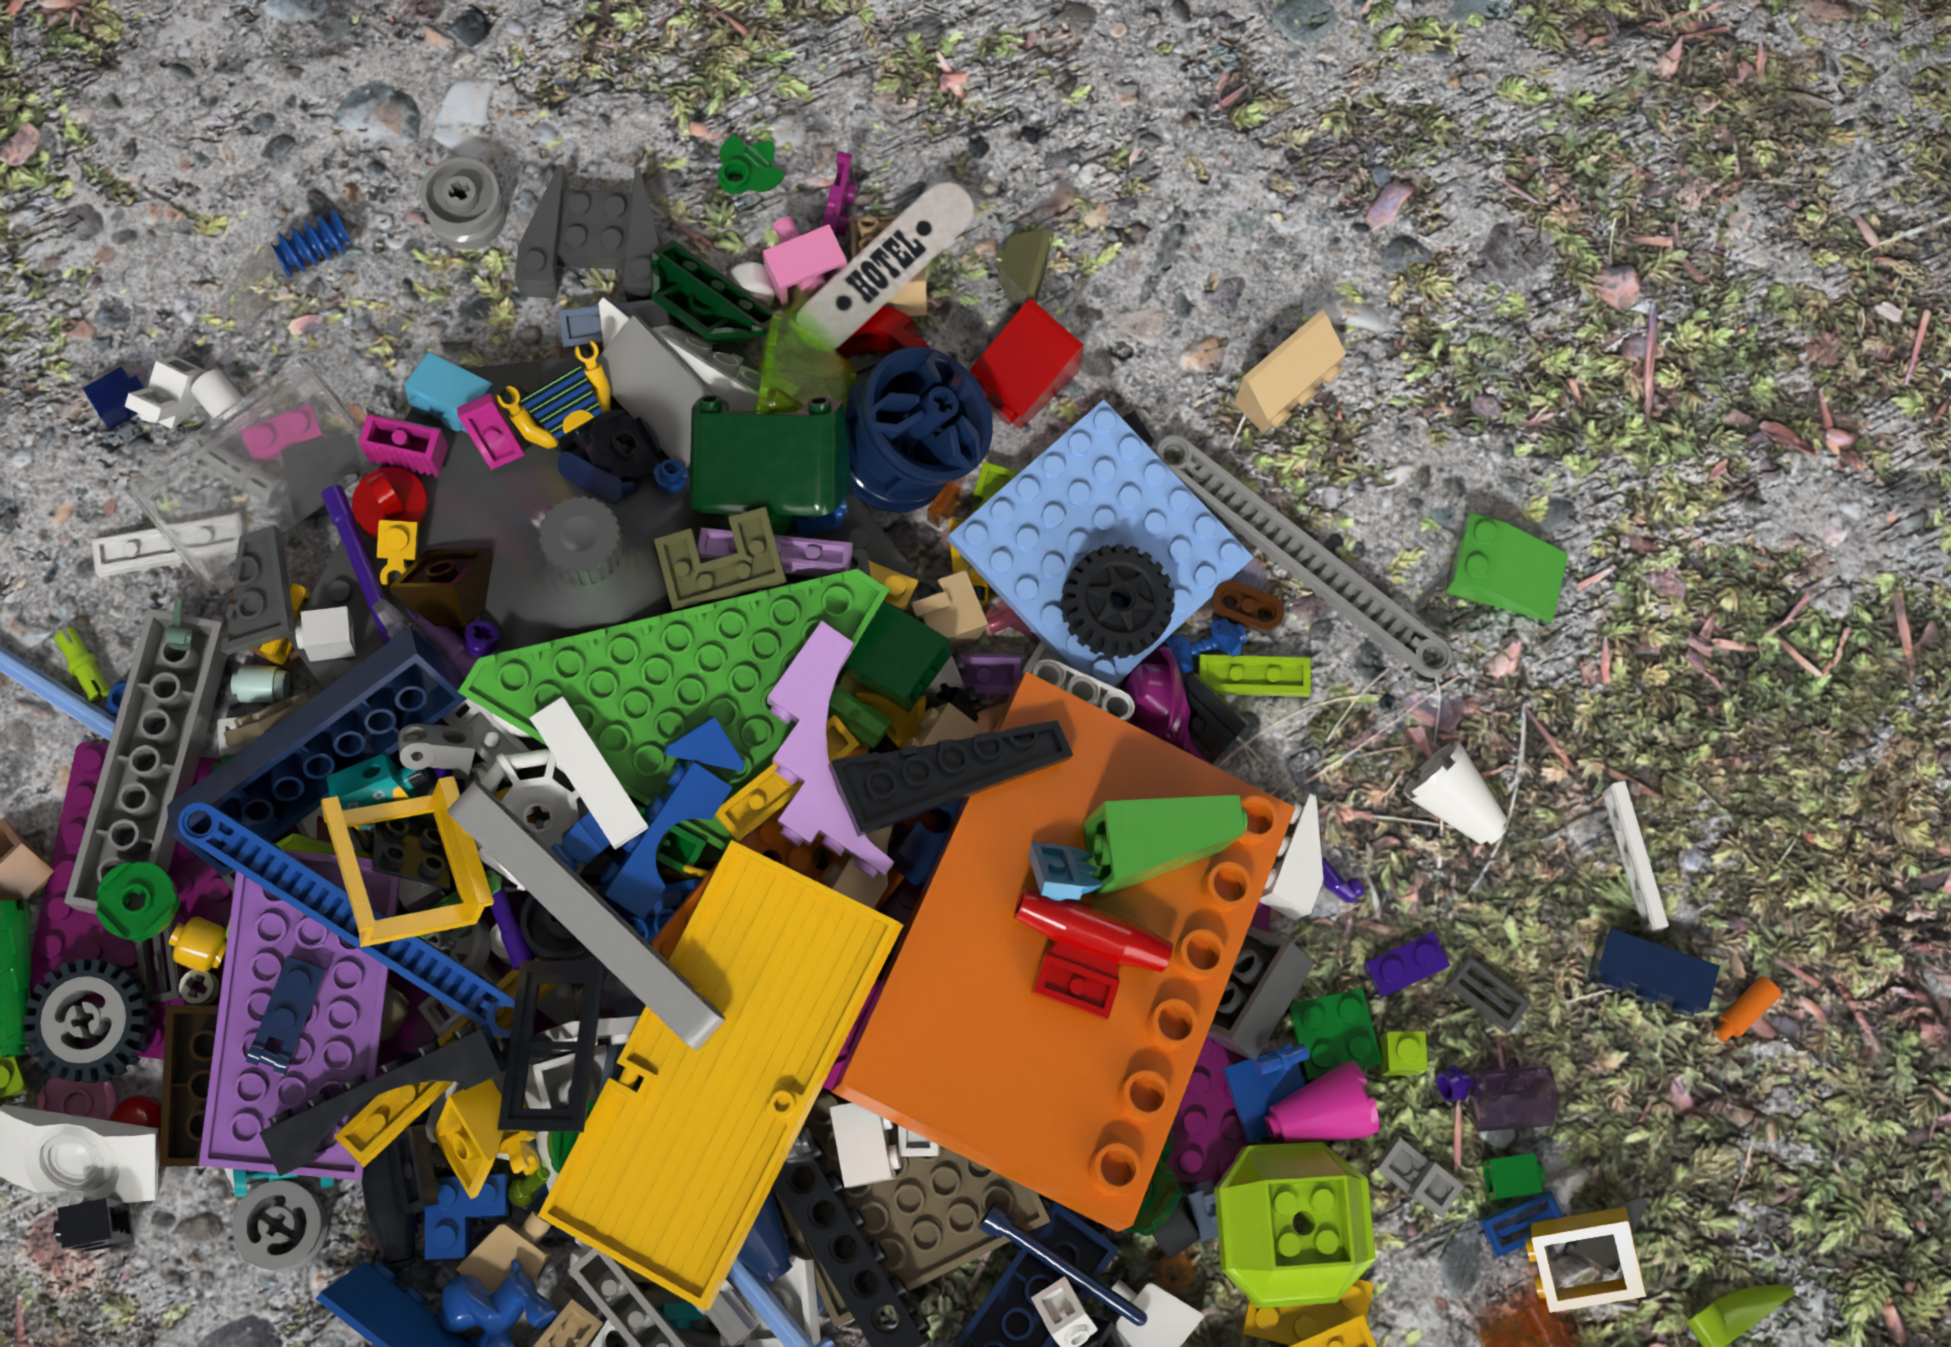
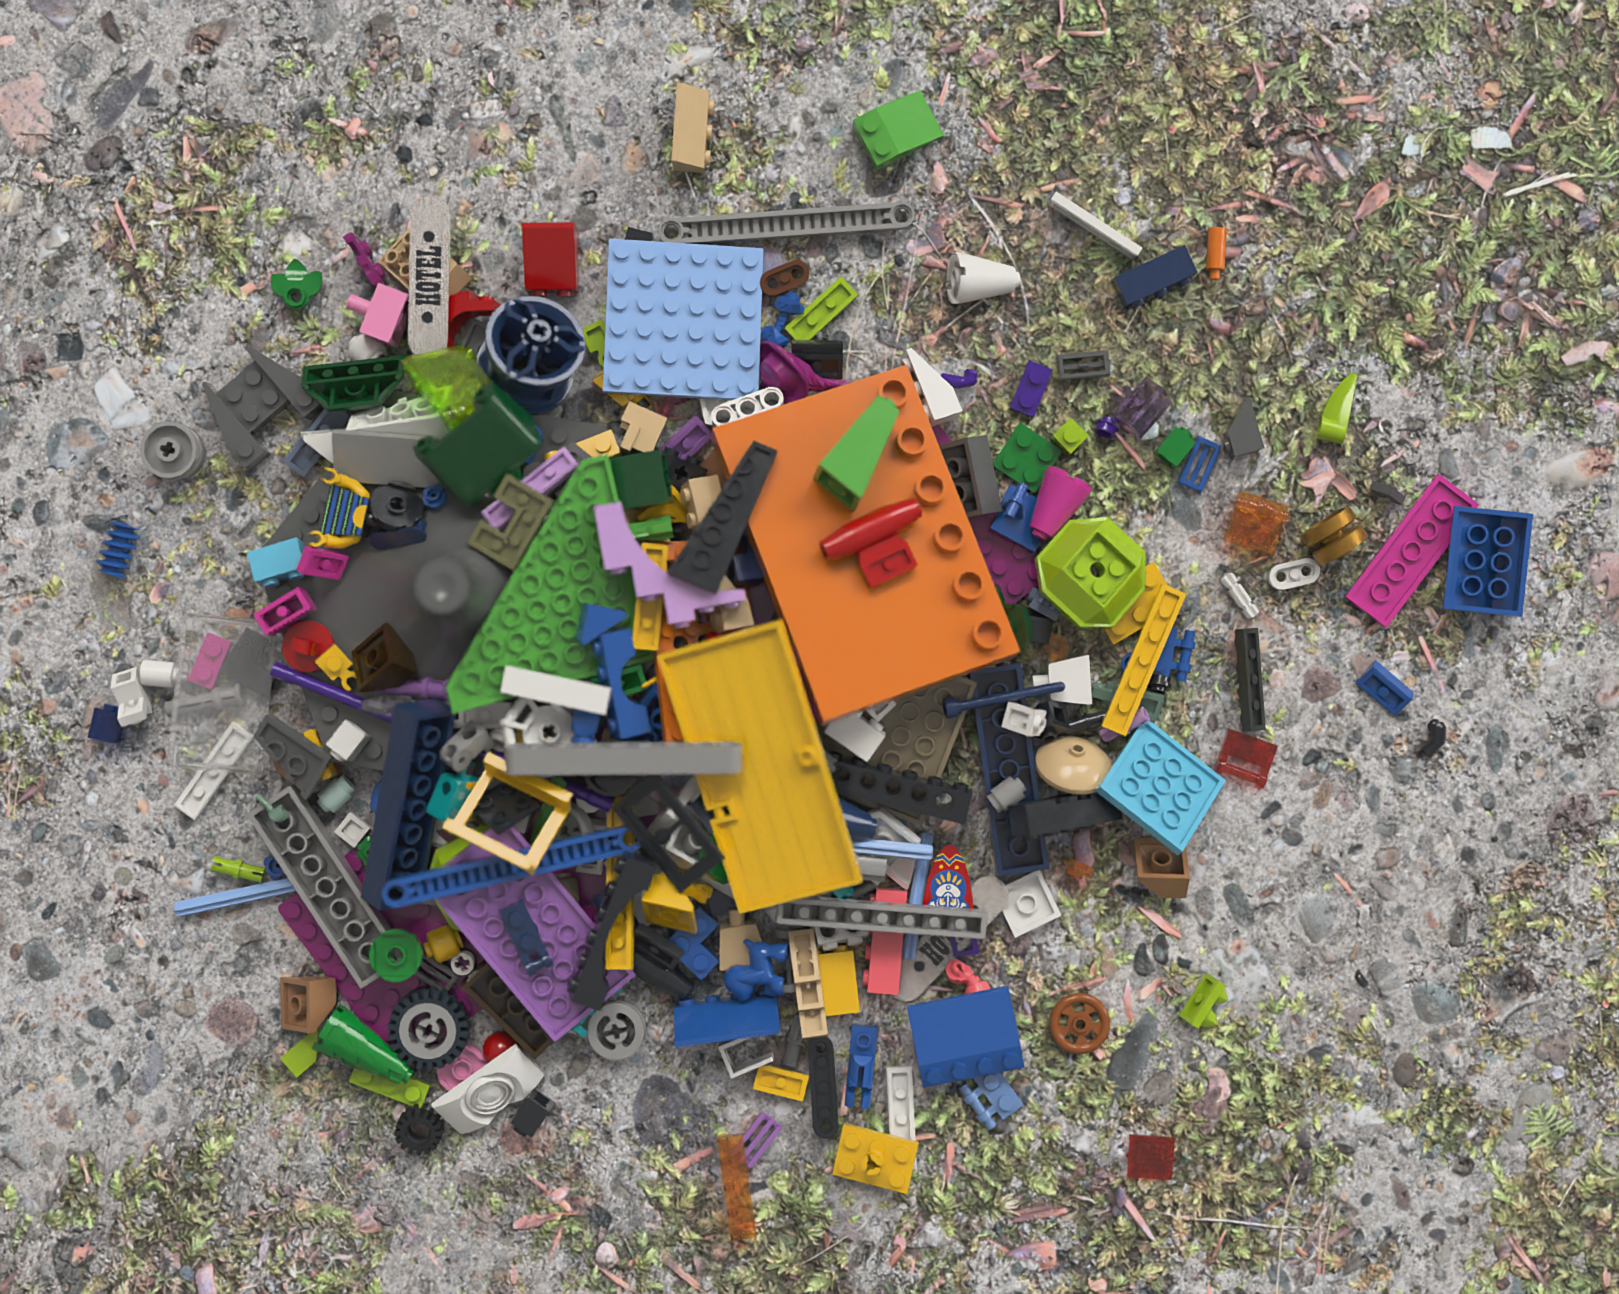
camera: 35 degrees left, 15 degrees up
(260, 722) = (365, 806): dark tan plate -> none
(480, 638) = (434, 677): dark purple bush -> none
(522, 1191) = (714, 905): clear neon green piece -> none
(944, 505) = (583, 374): clear orange plate -> none
(1023, 265) = (497, 204): olive slope -> none
(1062, 871) = (828, 515): dark azure plate -> none
(1102, 624) = (725, 324): black wheel -> none
(1418, 1176) = (1129, 489): light grey slope -> none
(1581, 1227) = (1228, 445): window -> none

